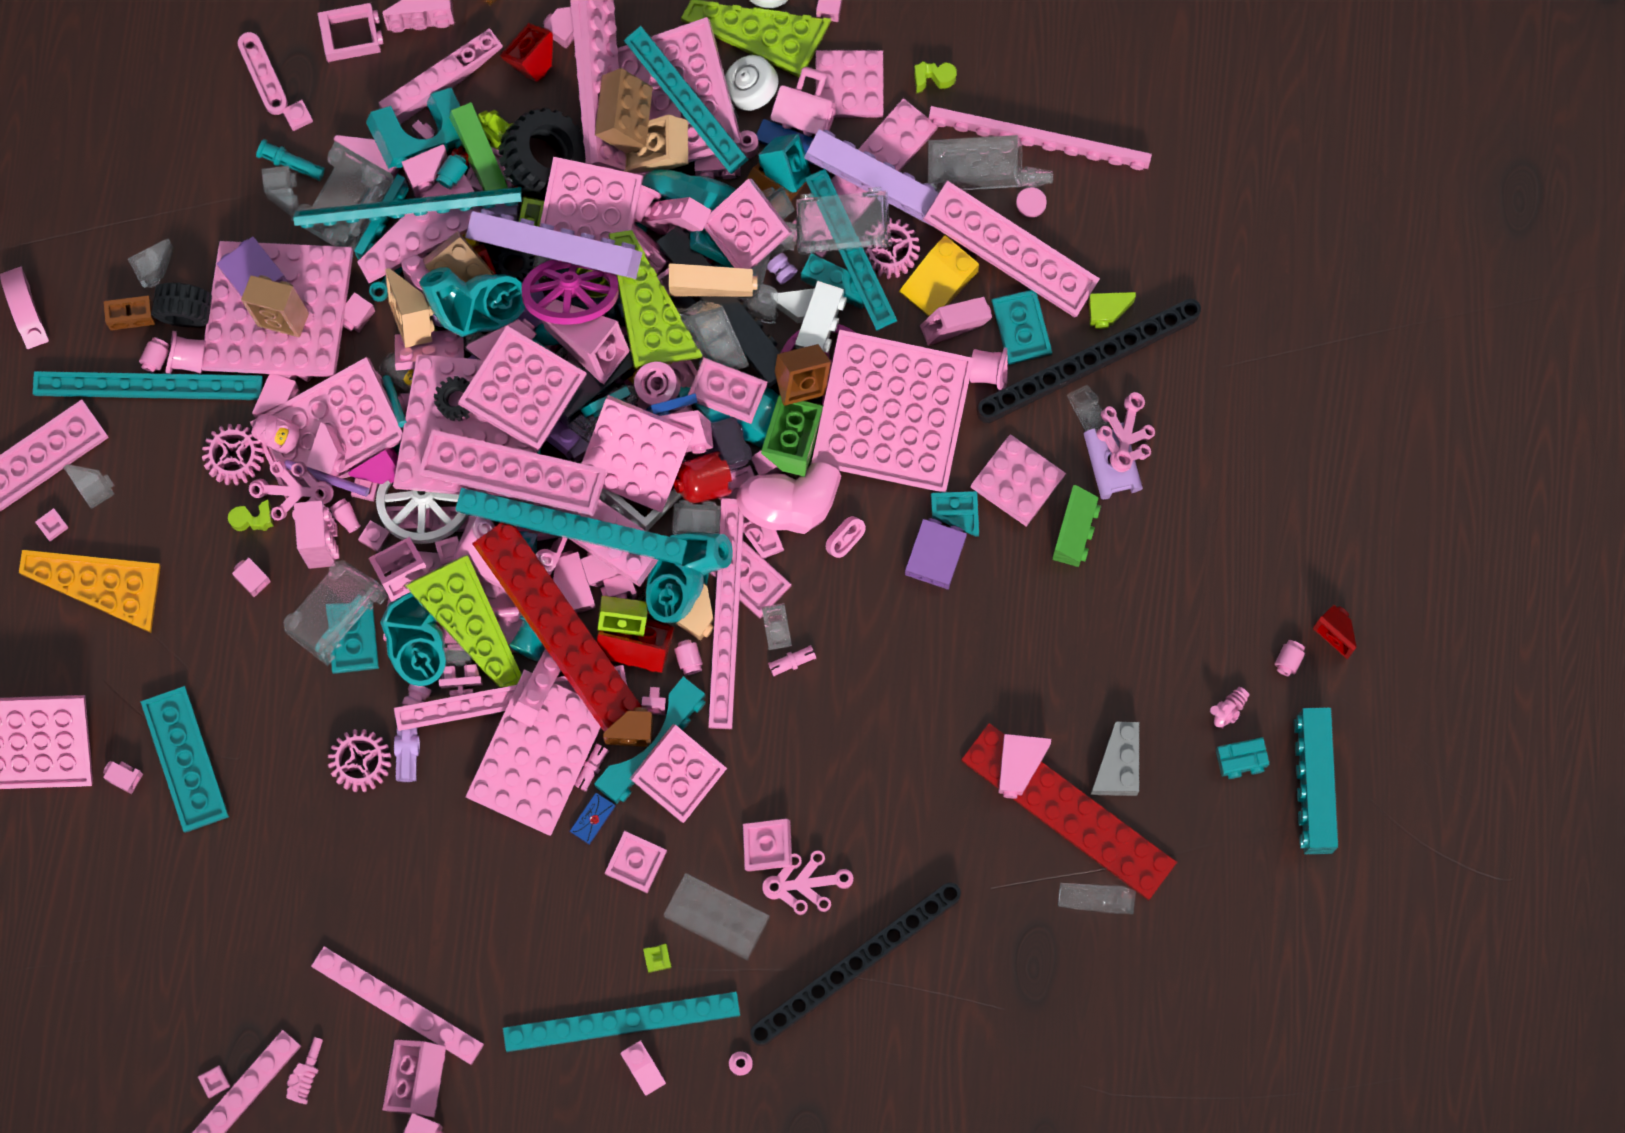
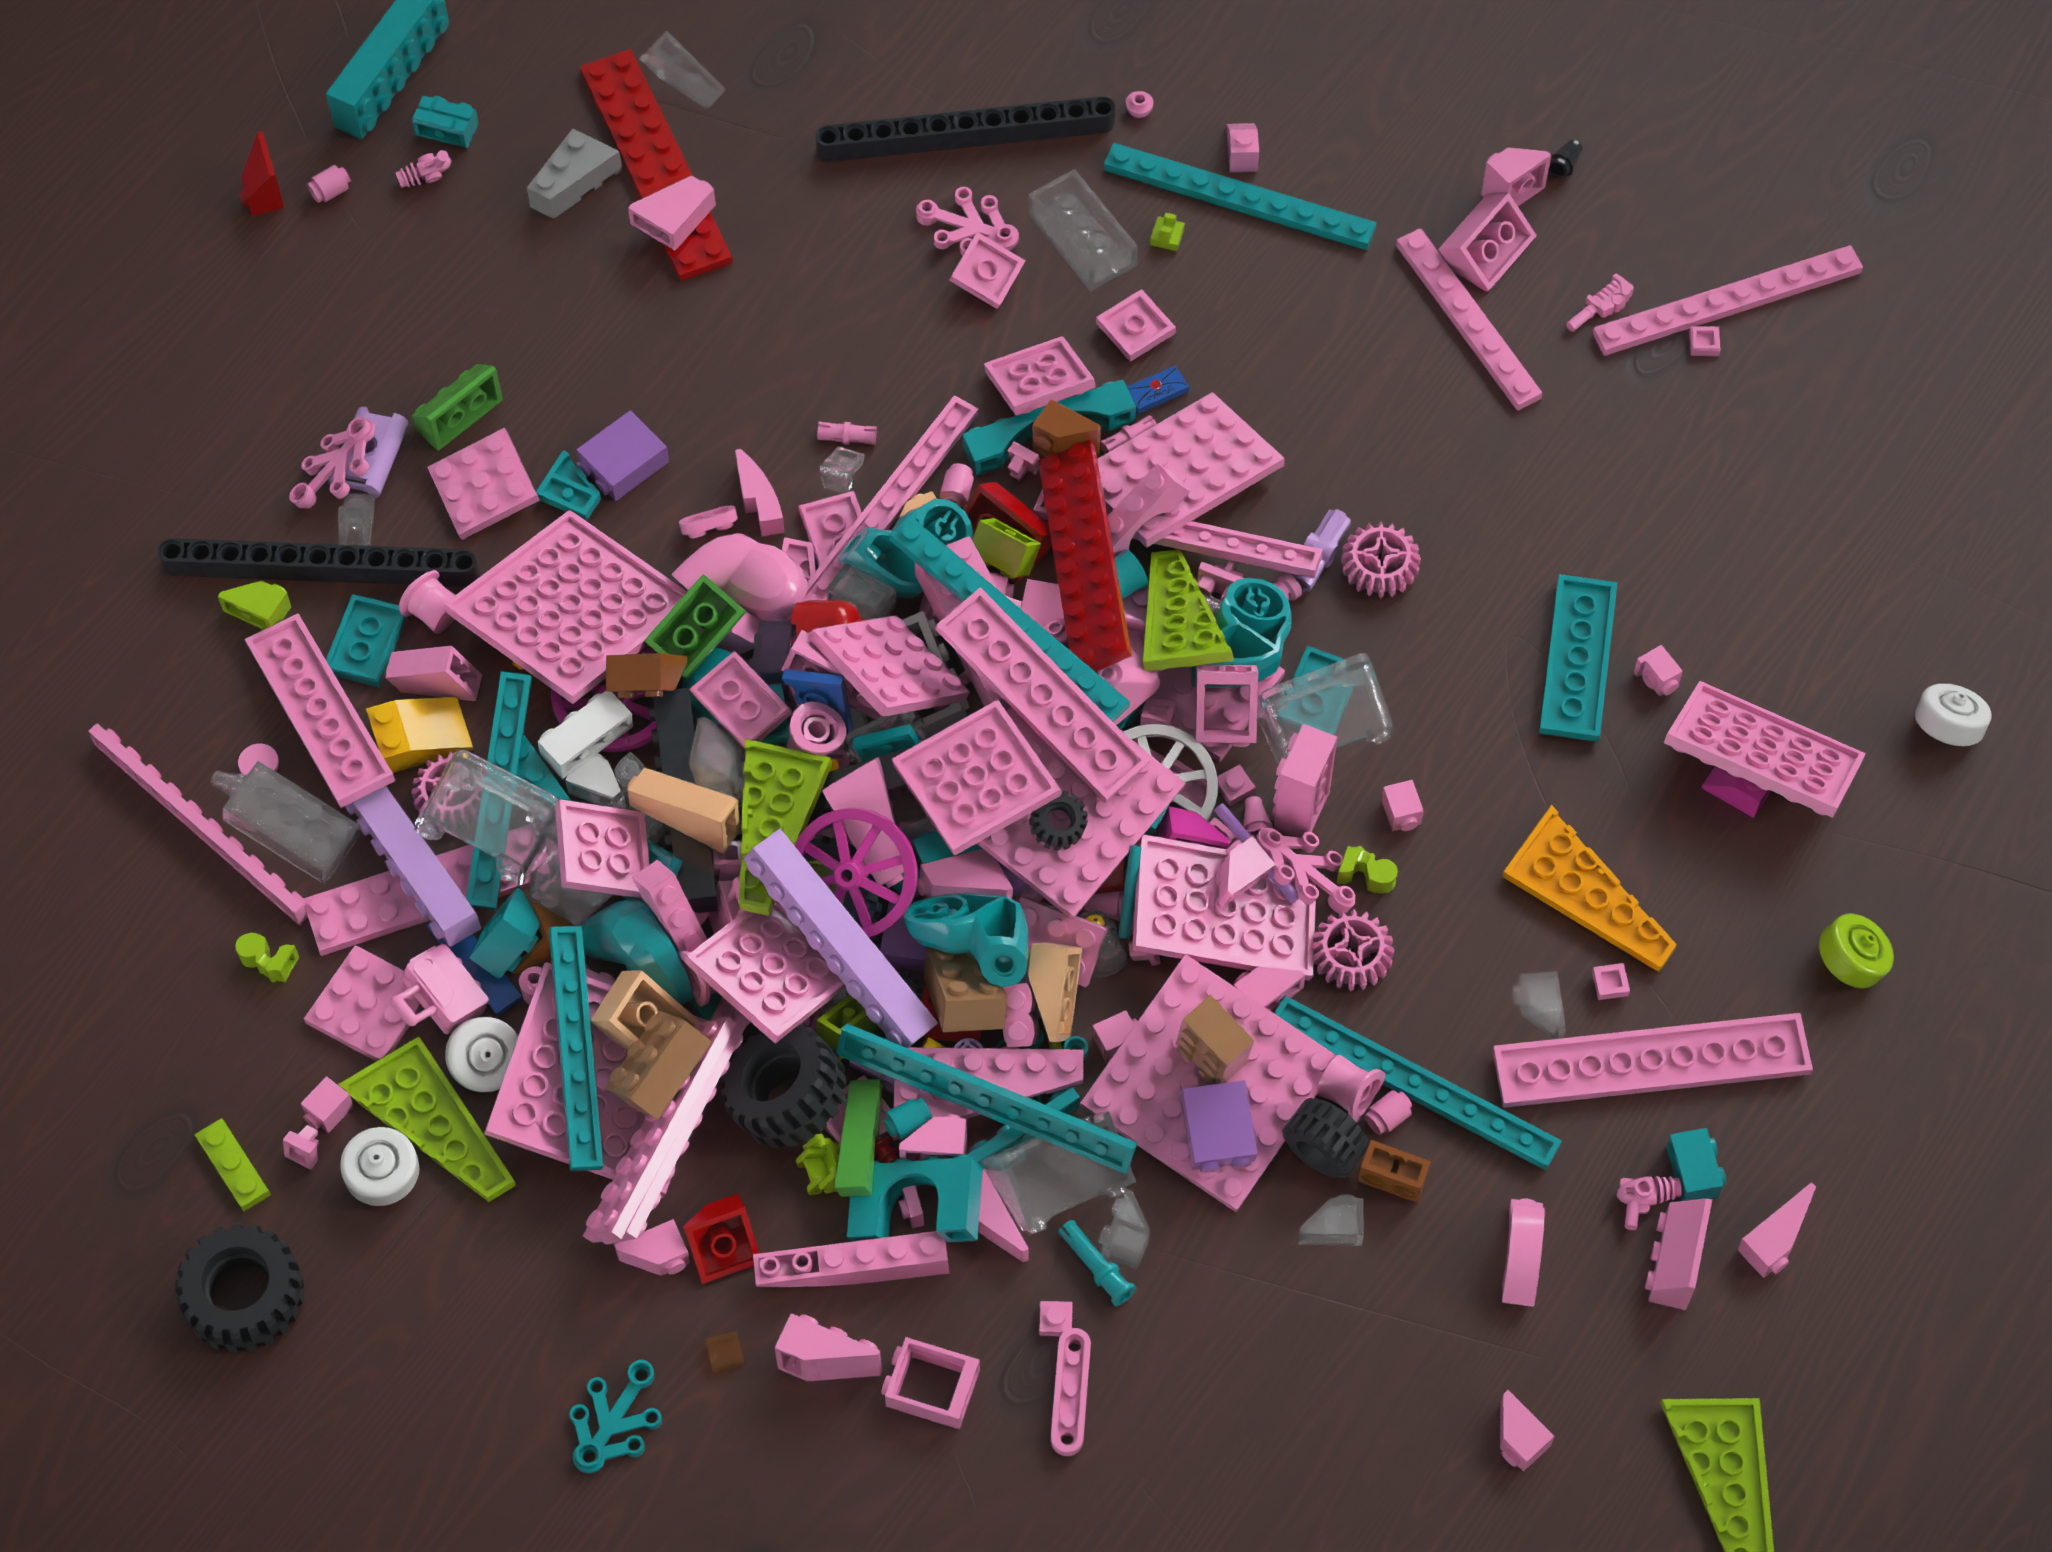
camera: 150 degrees left, 15 degrees down
(276, 432) = (1288, 935): bright pink piece -> none
(822, 575) = (759, 495): none -> bright pink slope

